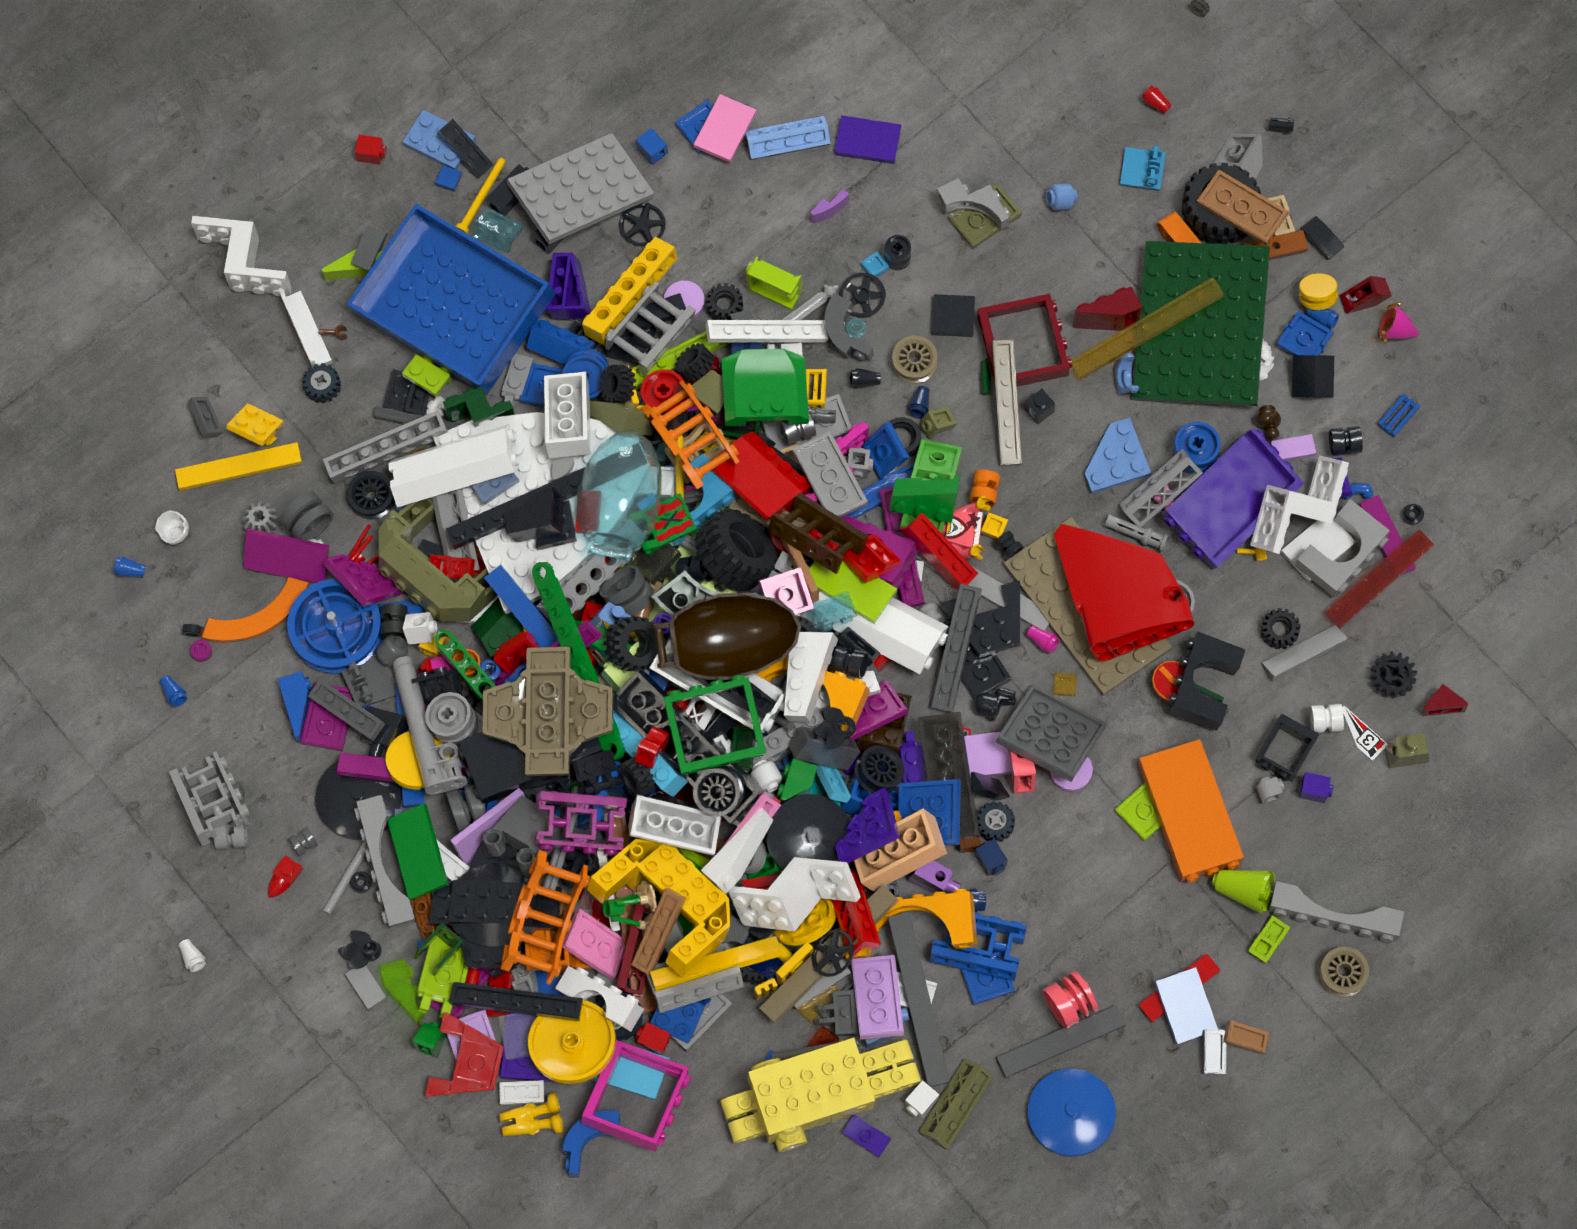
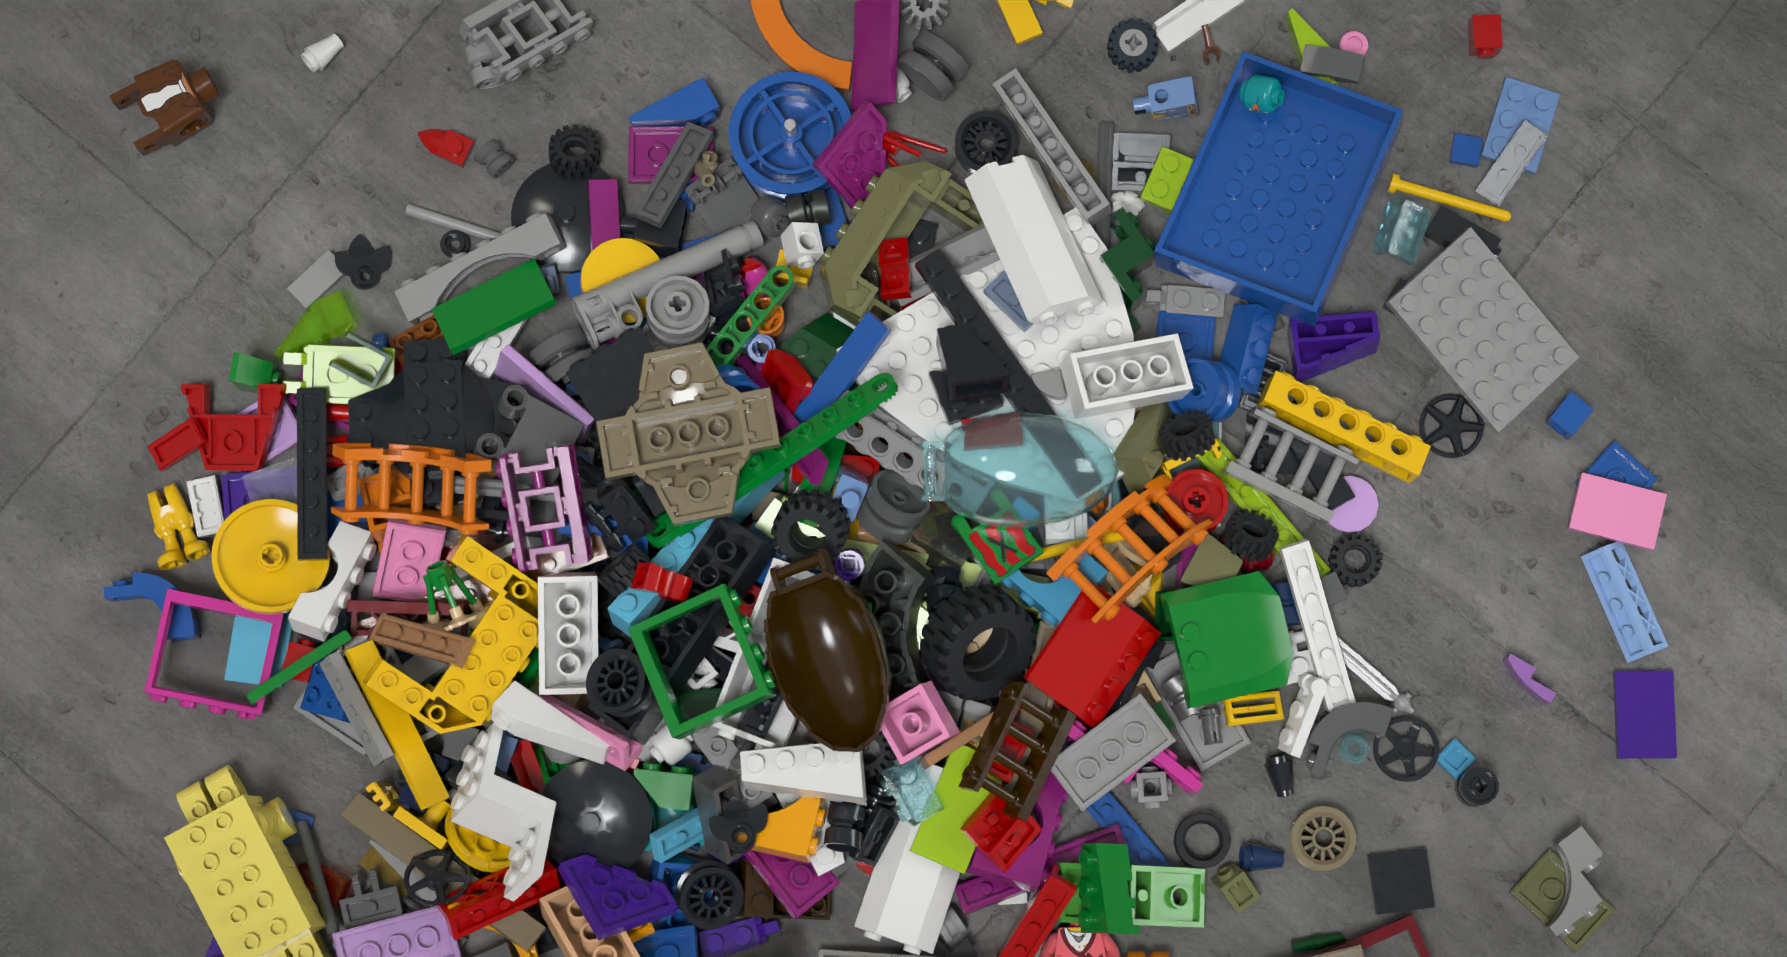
camera: 80 degrees right, 10 degrees up
(205, 1067) = (171, 99): none -> reddish brown piece
(304, 774) = (574, 164): none -> black tyre
(347, 688) = (705, 168): none -> dark tan arm
(354, 236) = (1354, 42): none -> bright pink tile
(368, 355) = (1180, 98): none -> medium blue torso
(380, 297) = (1262, 94): none -> teal head
(469, 1106) = (178, 444): none -> red tile
(659, 1032) = (298, 666): none -> green tile
(773, 283) = (1393, 622): lime window -> none
(826, 354) = (1302, 714): none -> white plate
(886, 450) = (1174, 822): blue tile -> none

